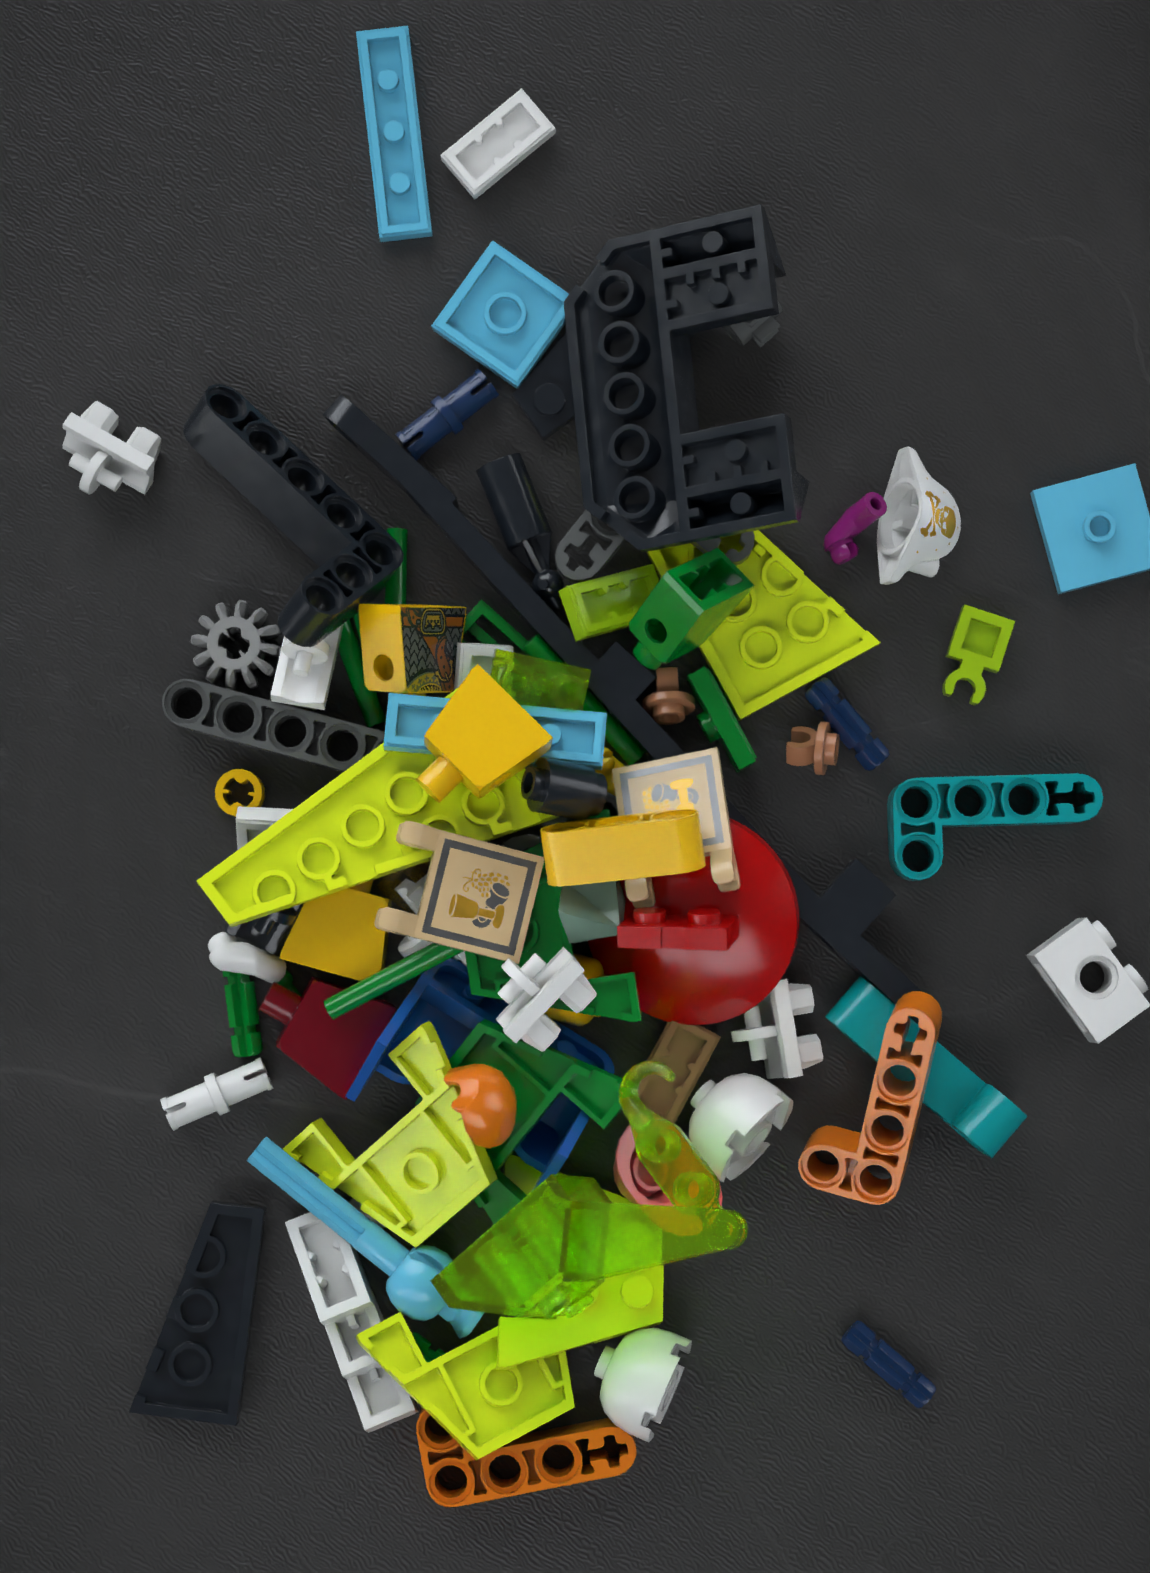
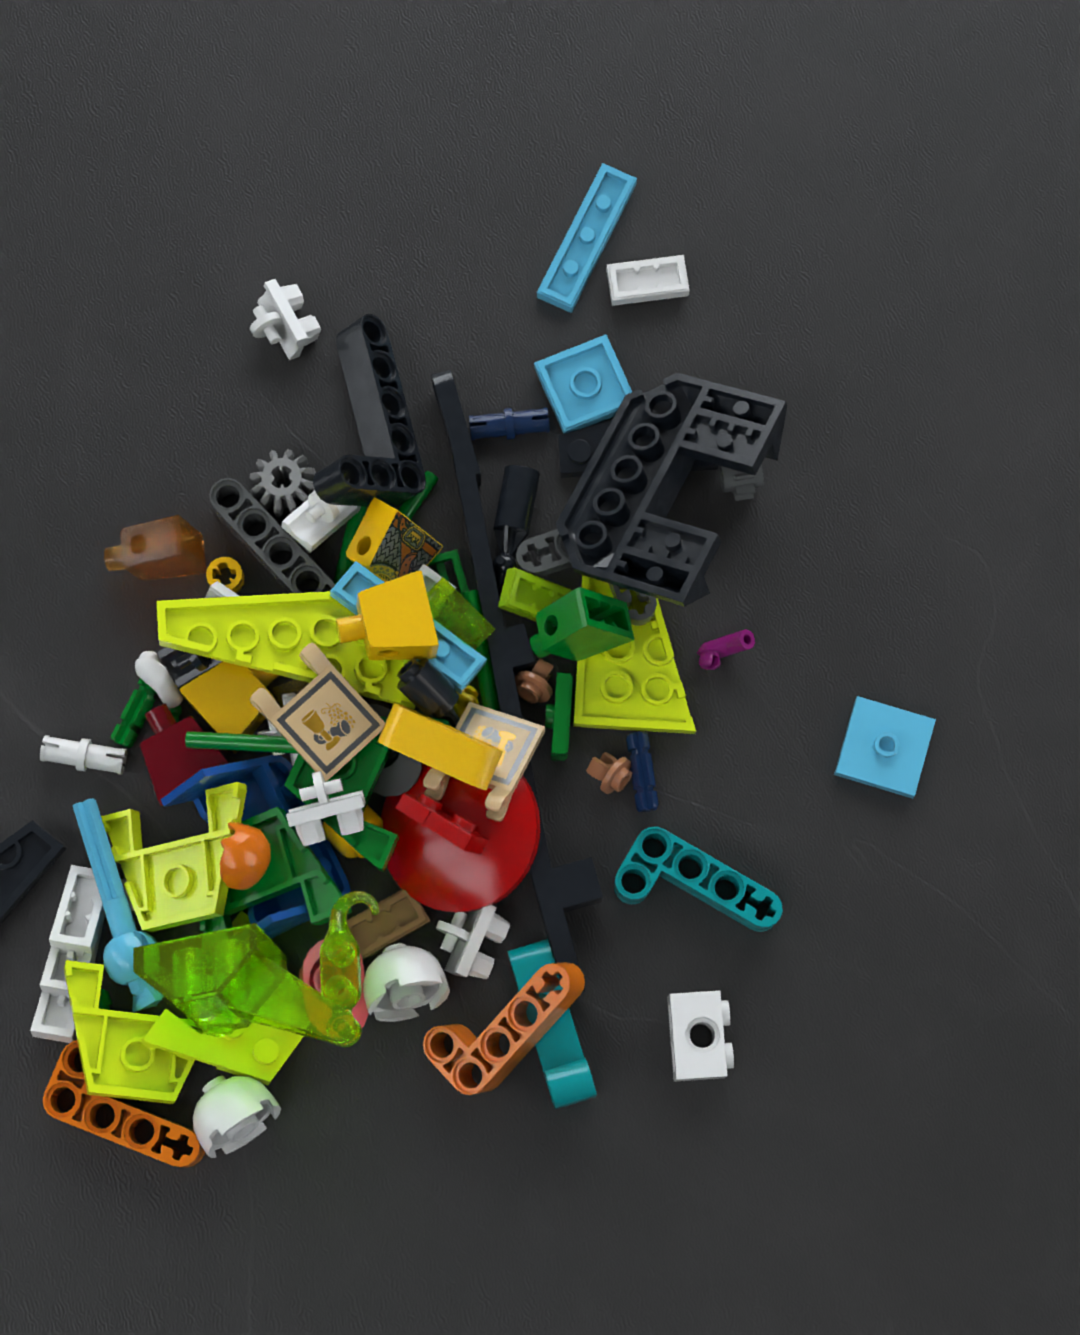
camera: 30 degrees right, 10 degrees down
(161, 802) = (158, 550): none -> clear orange torso
(591, 910) = (396, 774): sand green slope -> none
(888, 1364) = (402, 1212): dark blue axle -> none
(919, 521) = (769, 669): white hat -> none
(978, 645) = (759, 773): lime plate -> none

